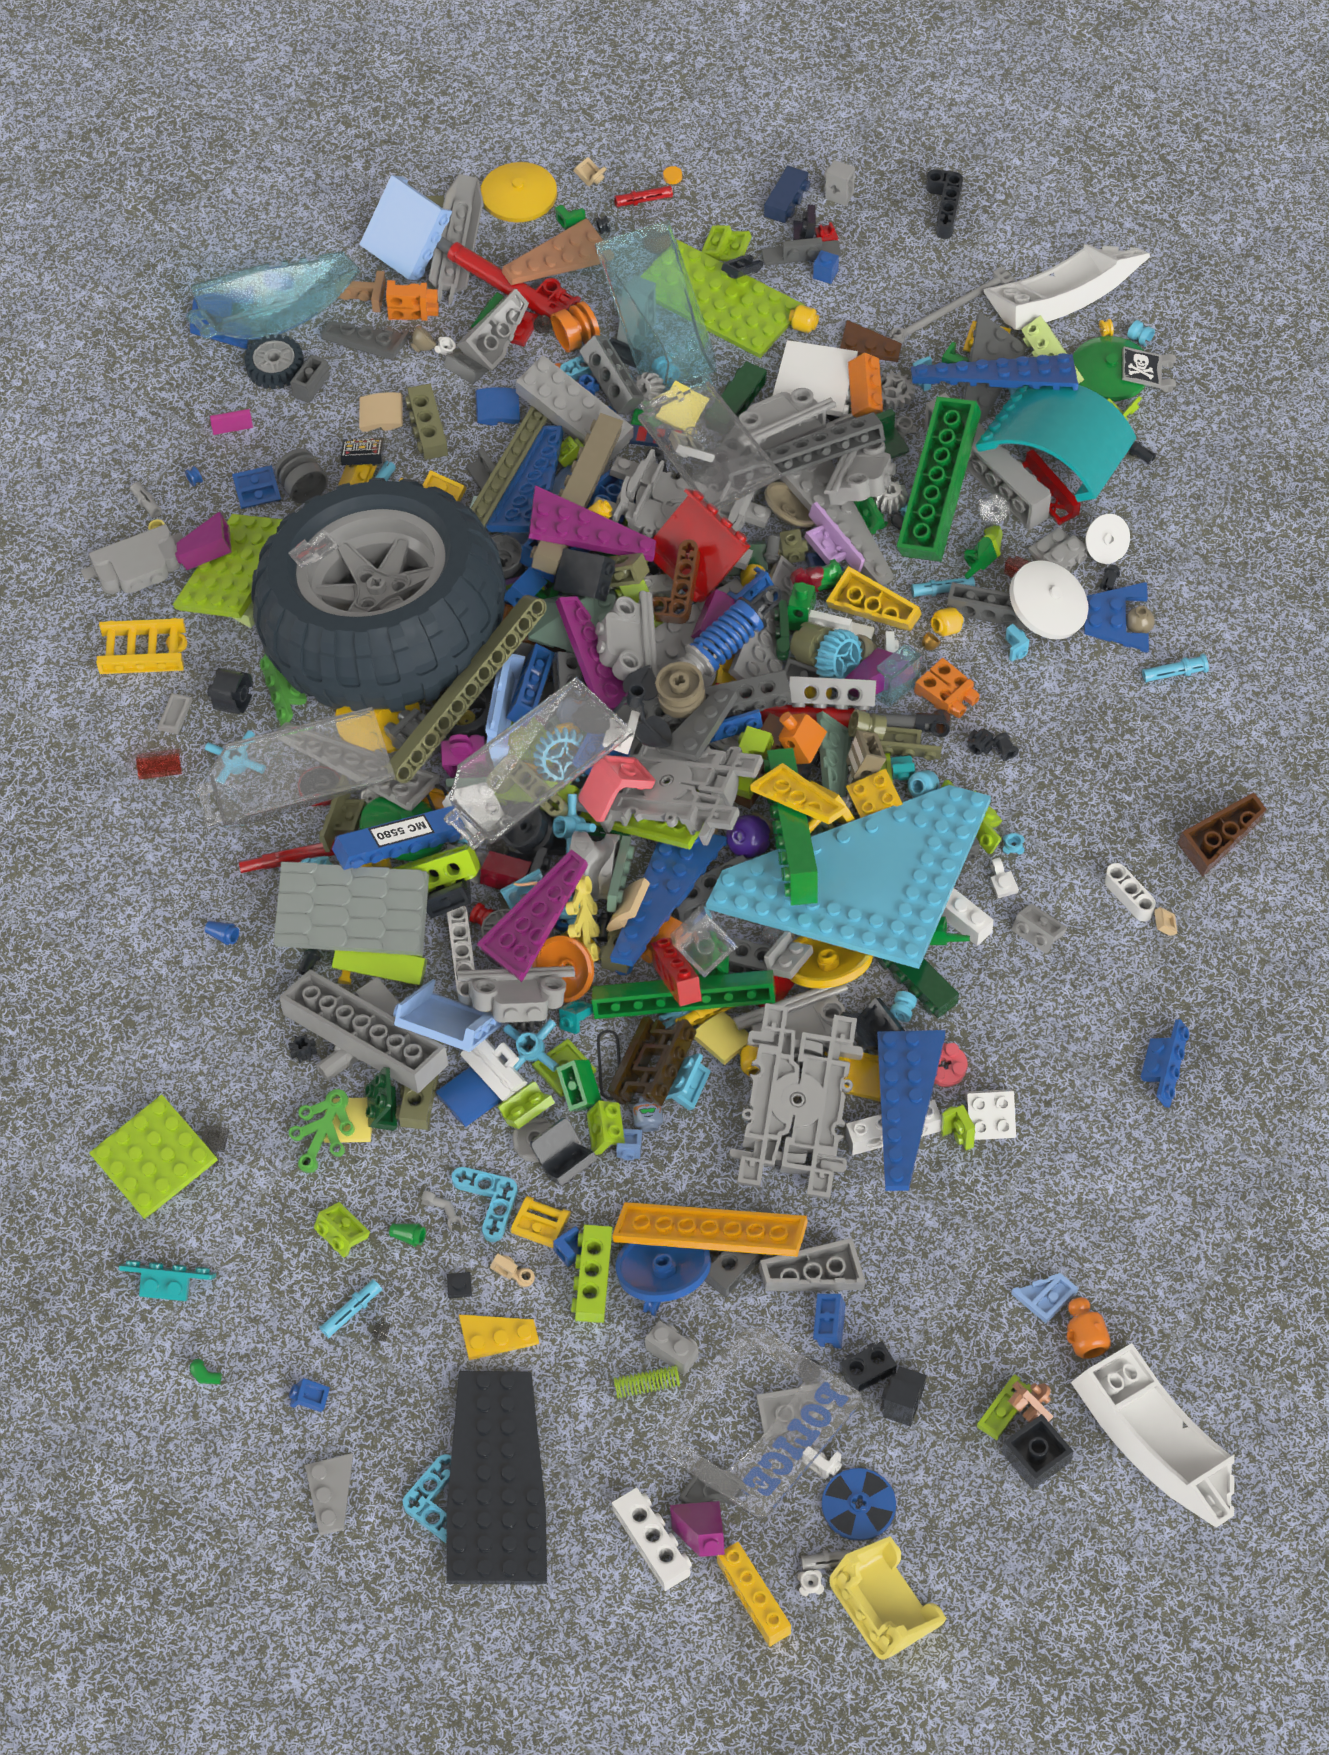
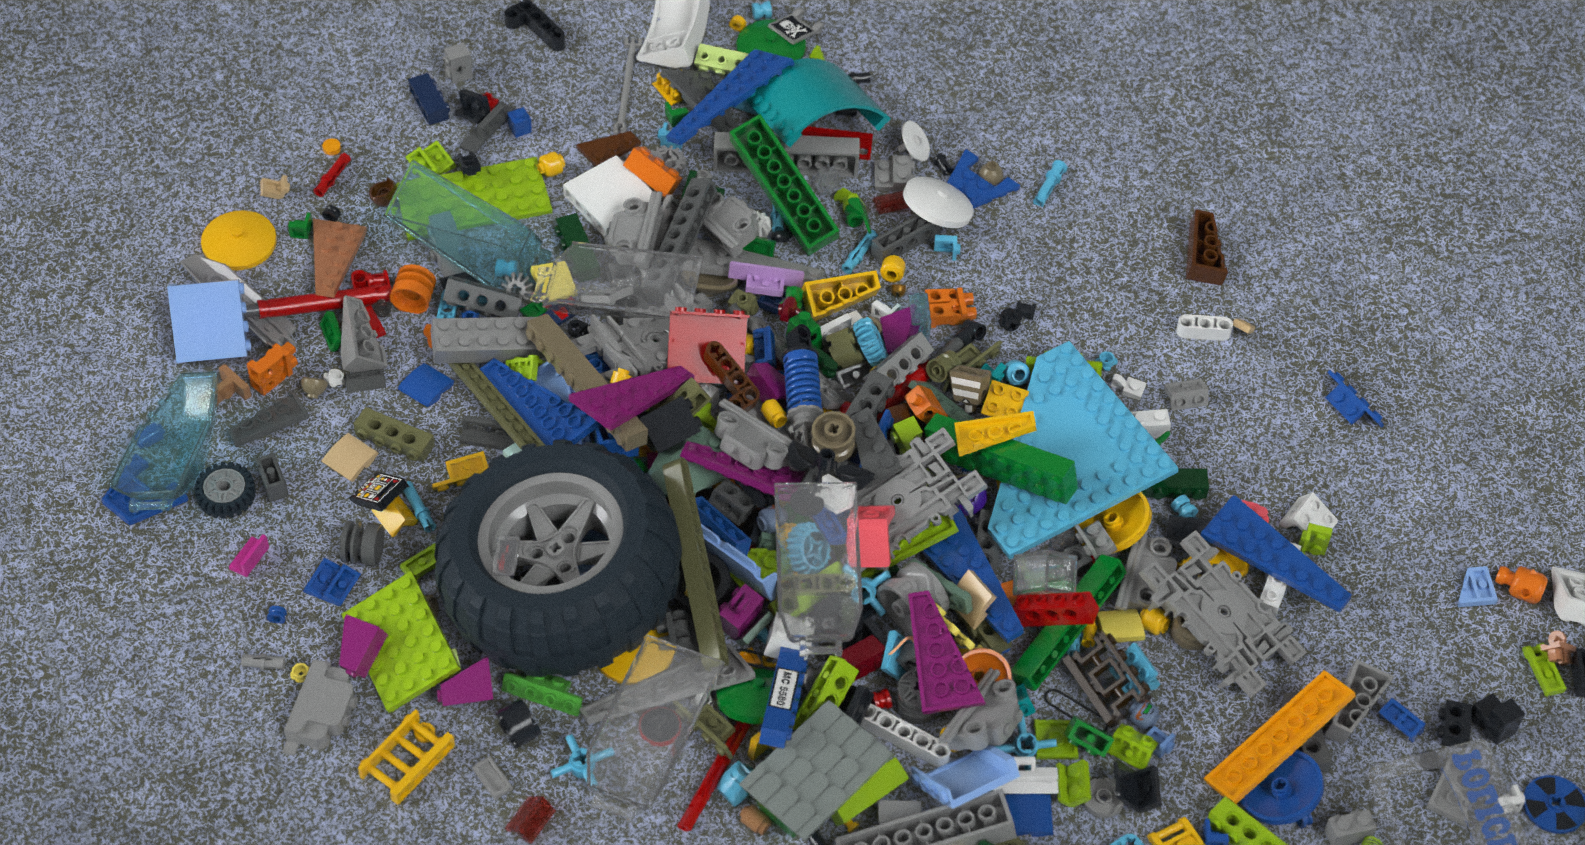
camera: 55 degrees left, 5 degrees down
(235, 637) = (468, 686): none -> magenta slope
(683, 636) = (774, 413): none -> yellow brick

